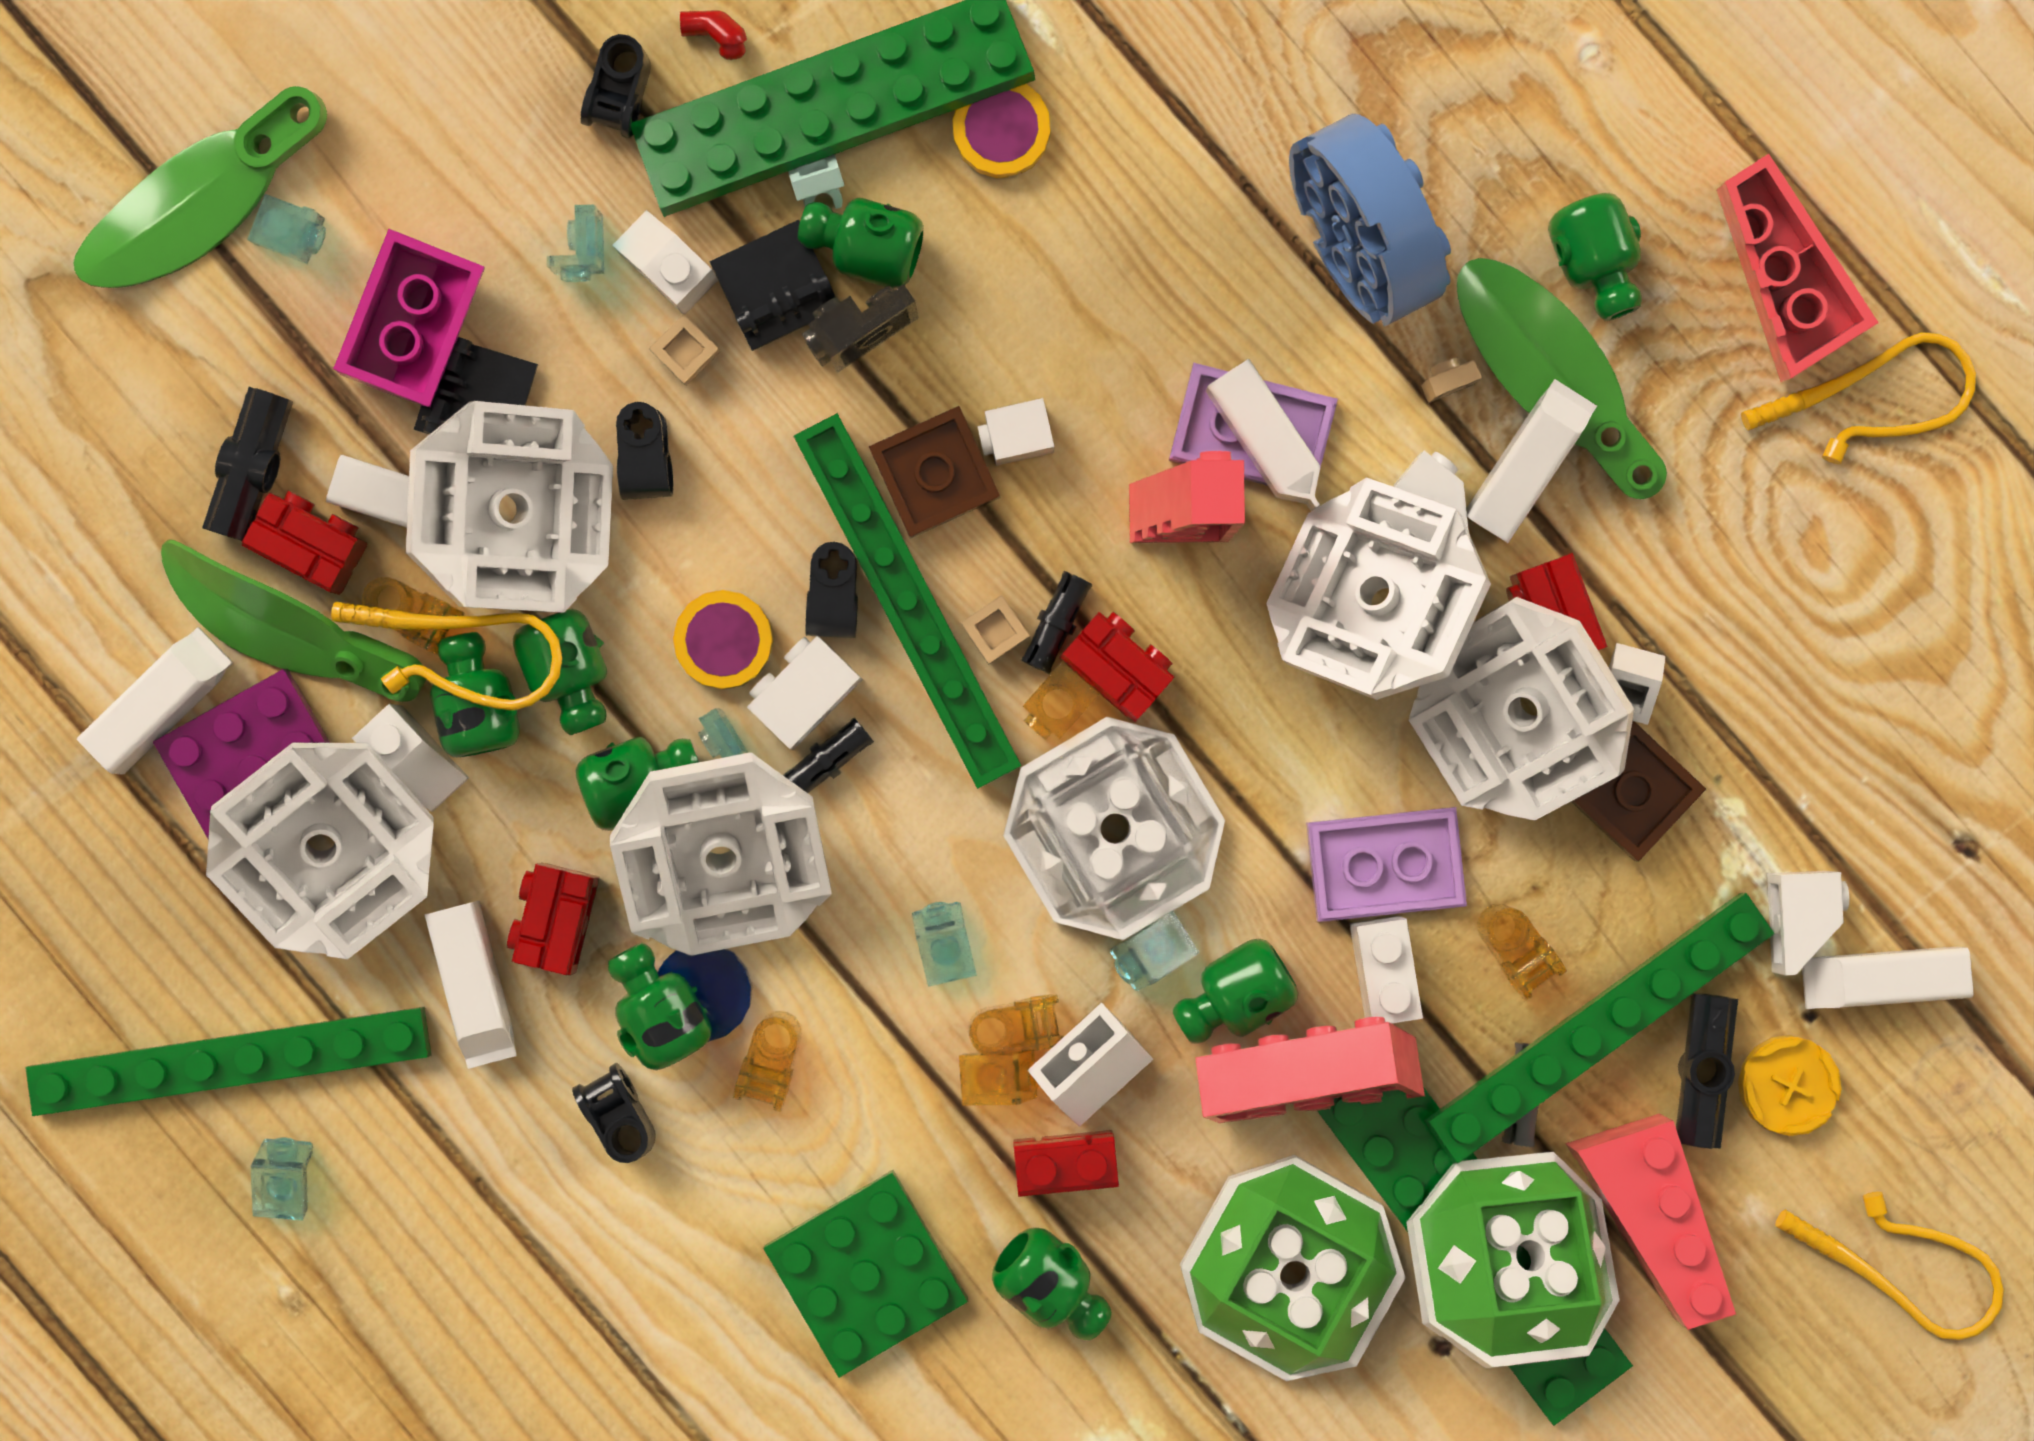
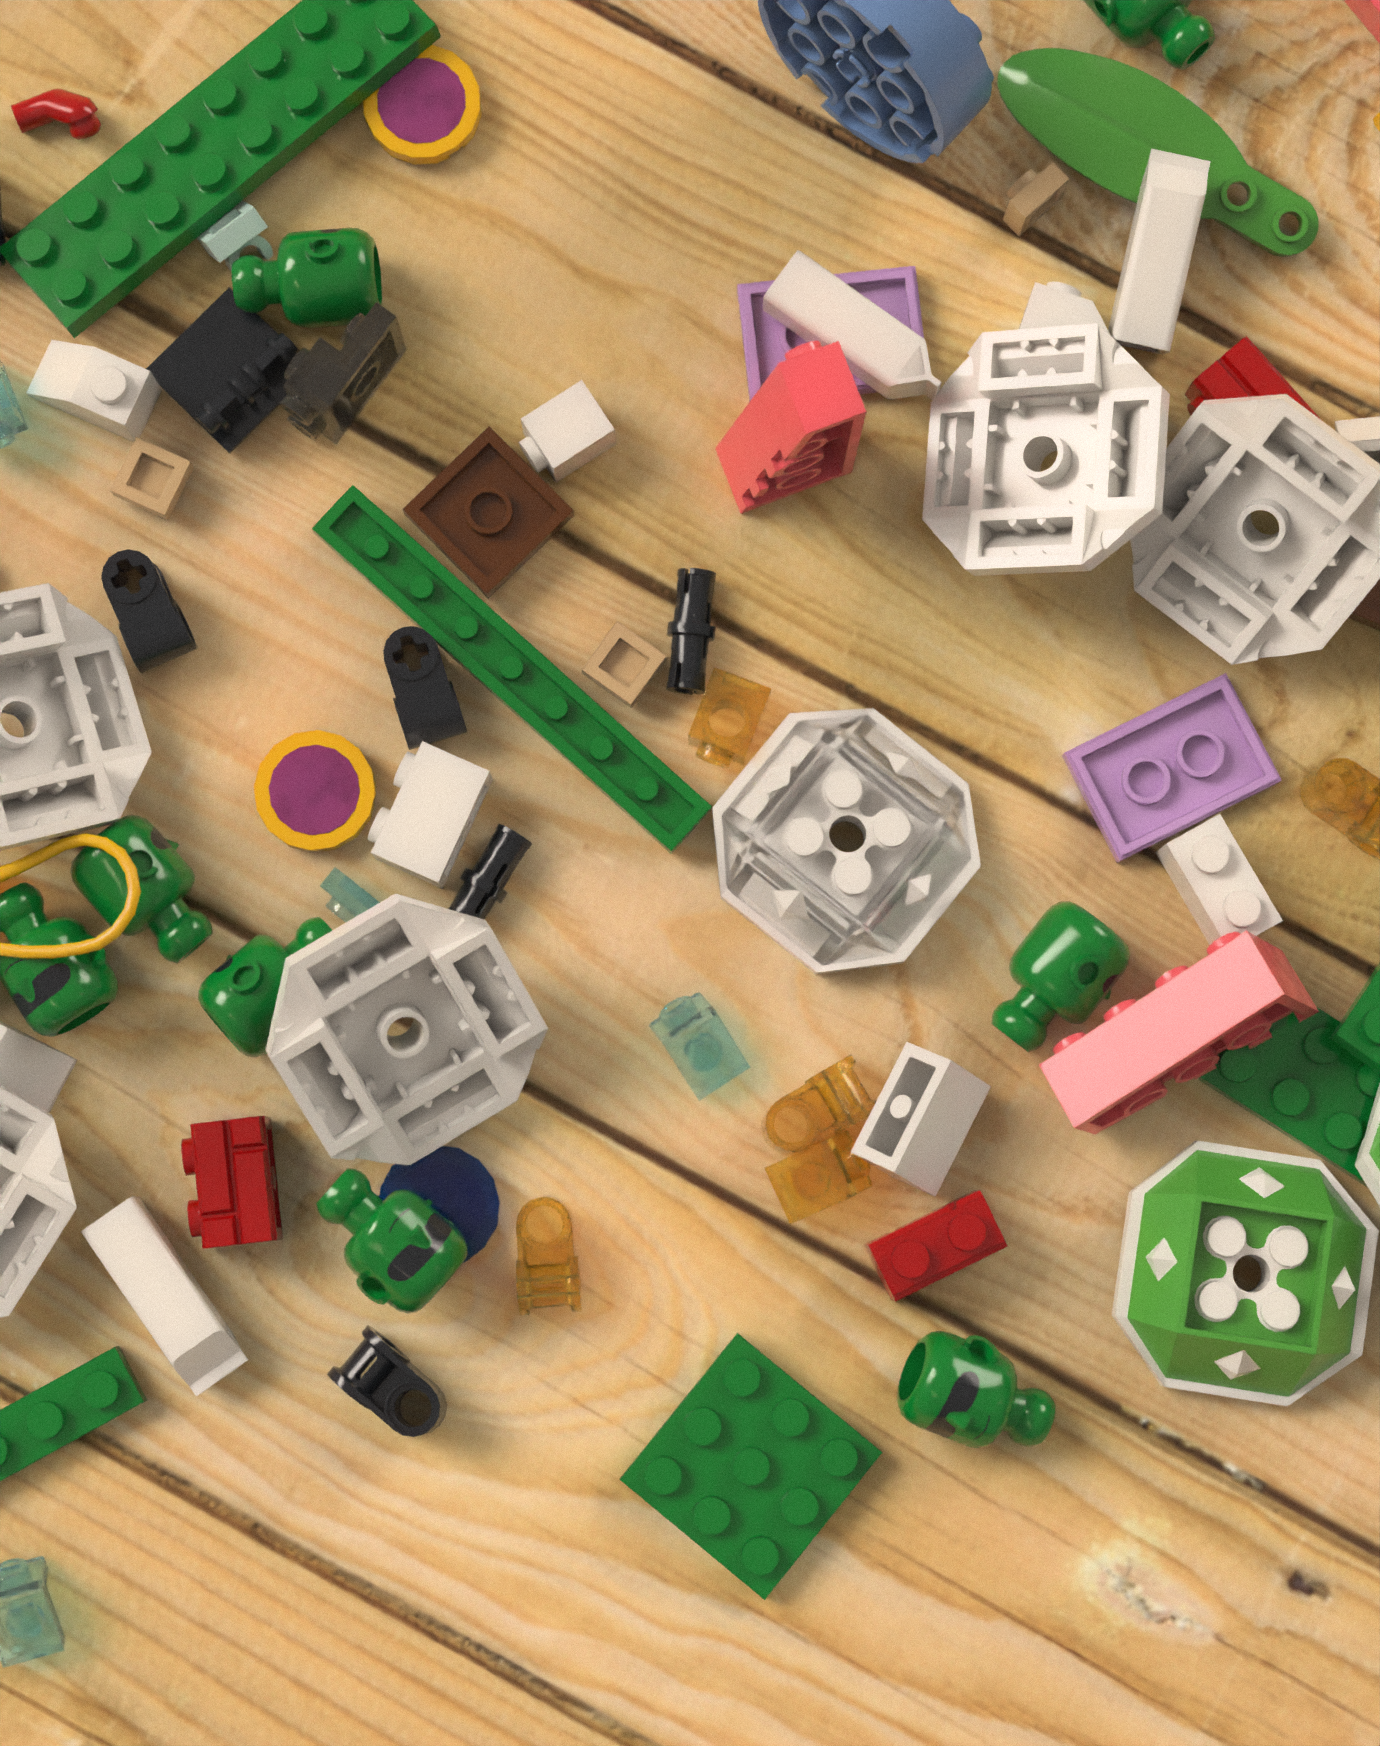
camera: 20 degrees left, 5 degrees down
(1118, 666) = (780, 651): red brick -> none
(1153, 952) = (943, 965): clear light blue bracket -> none

